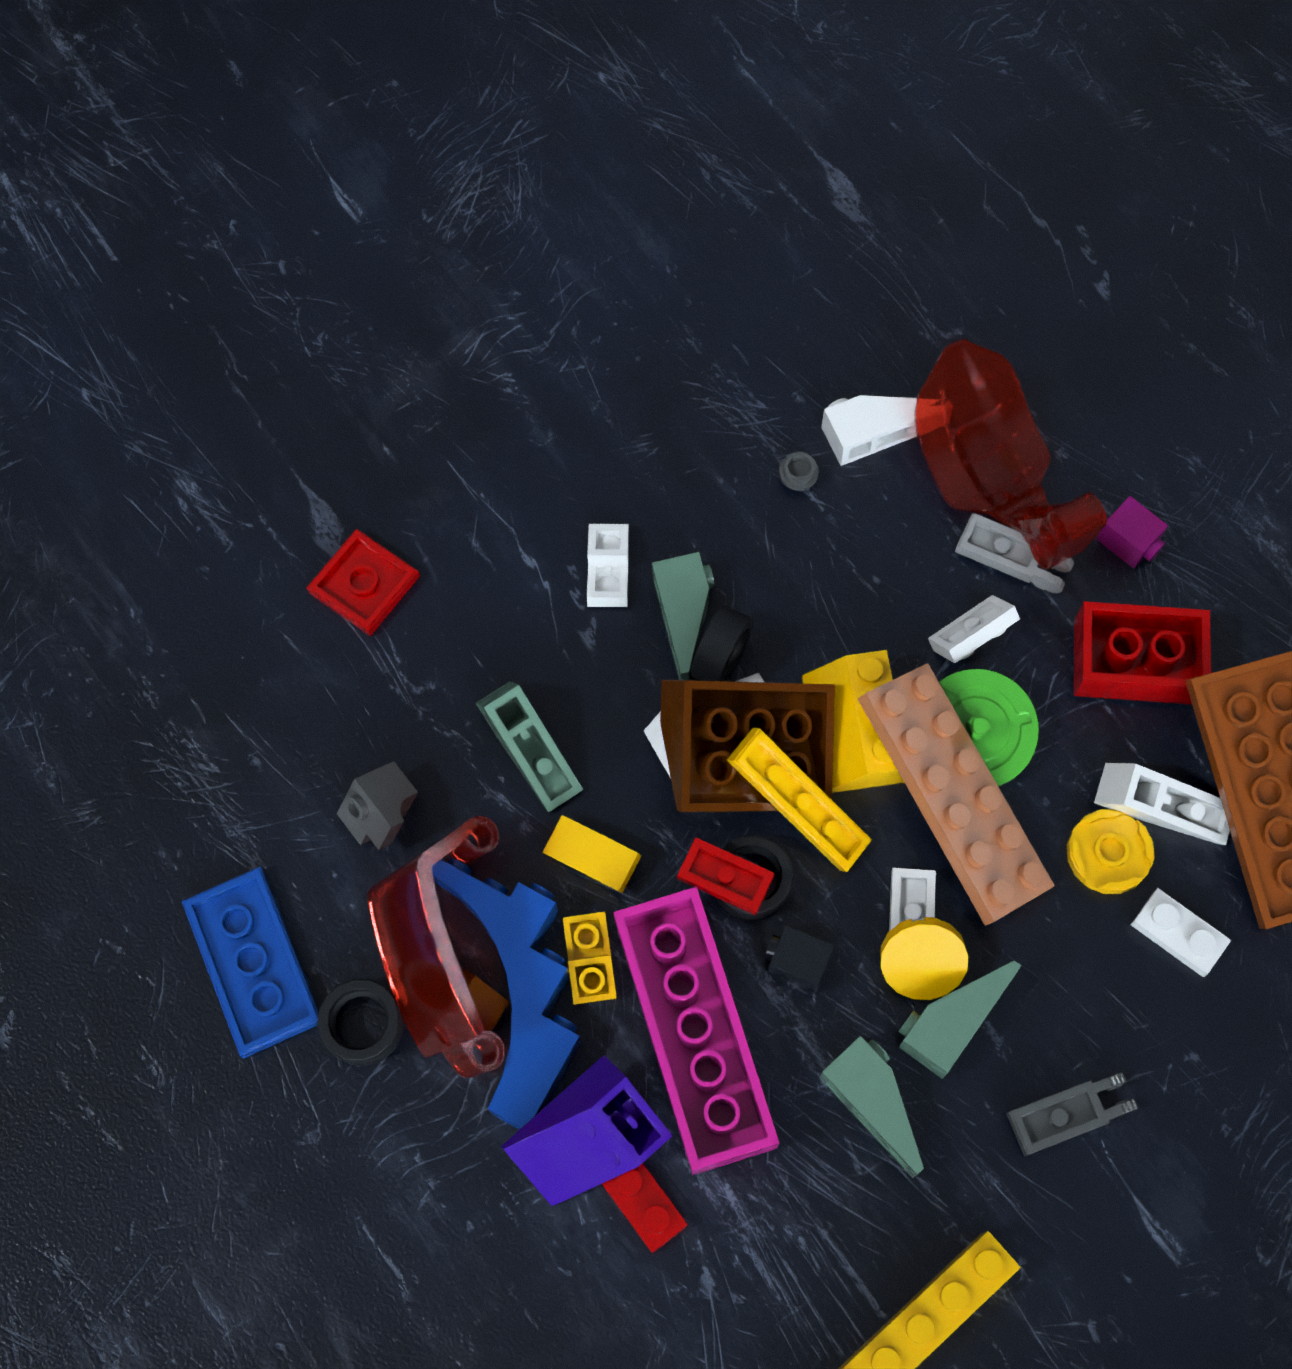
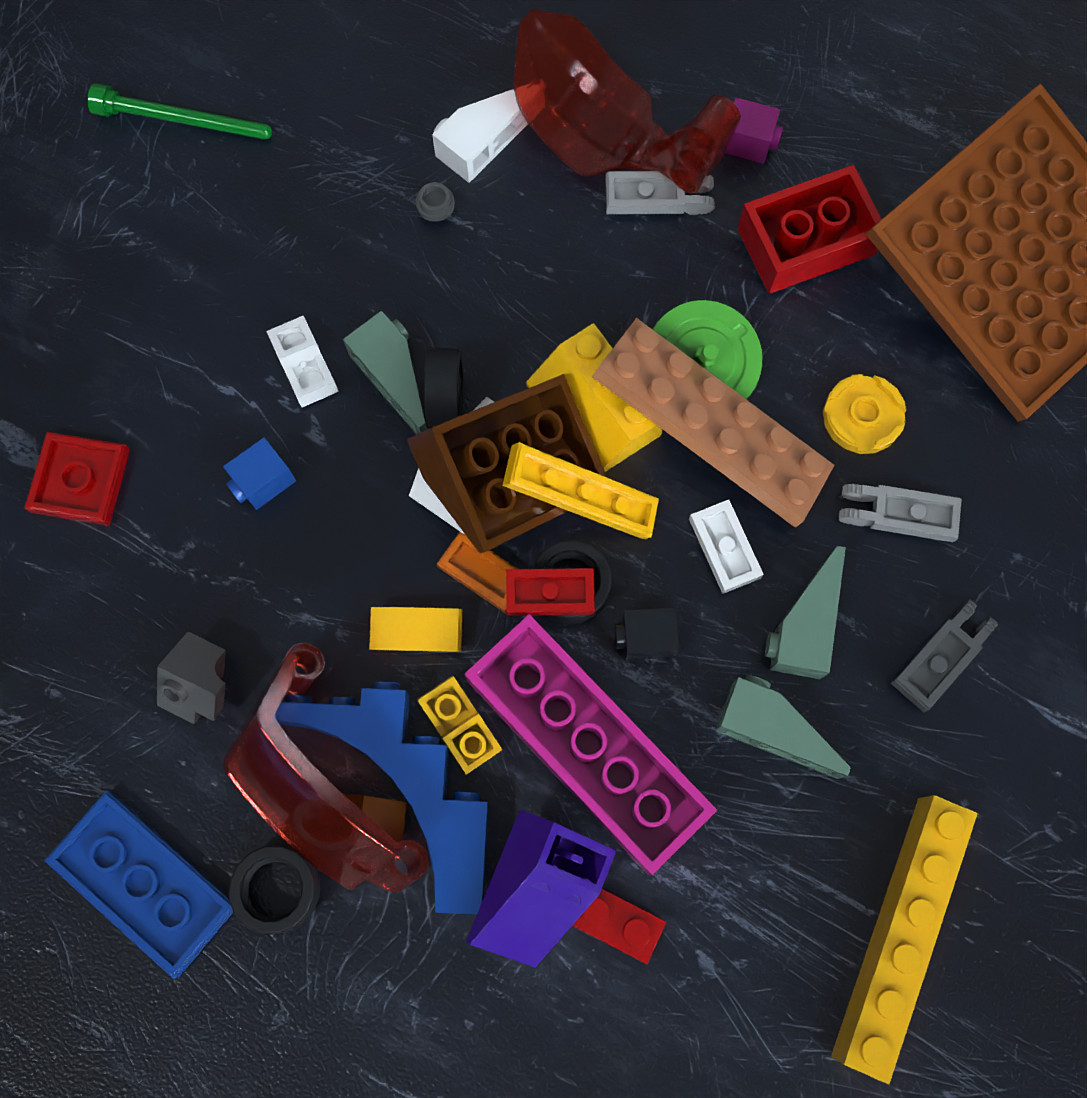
camera: 30 degrees left, 5 degrees up
(519, 650) = (258, 474): none -> blue brick
(529, 745) = (309, 556): sand green slope -> none
(546, 251) = (106, 101): none -> green piece
(672, 828) = (478, 571): none -> orange tile
(923, 958) = (758, 581): yellow tile -> none
(974, 629) = (657, 273): white plate -> none
(1100, 961) = (904, 511): none -> light grey hinge
(1162, 801) = (888, 349): white slope -> none
(1180, 932) = (956, 455): white plate -> none

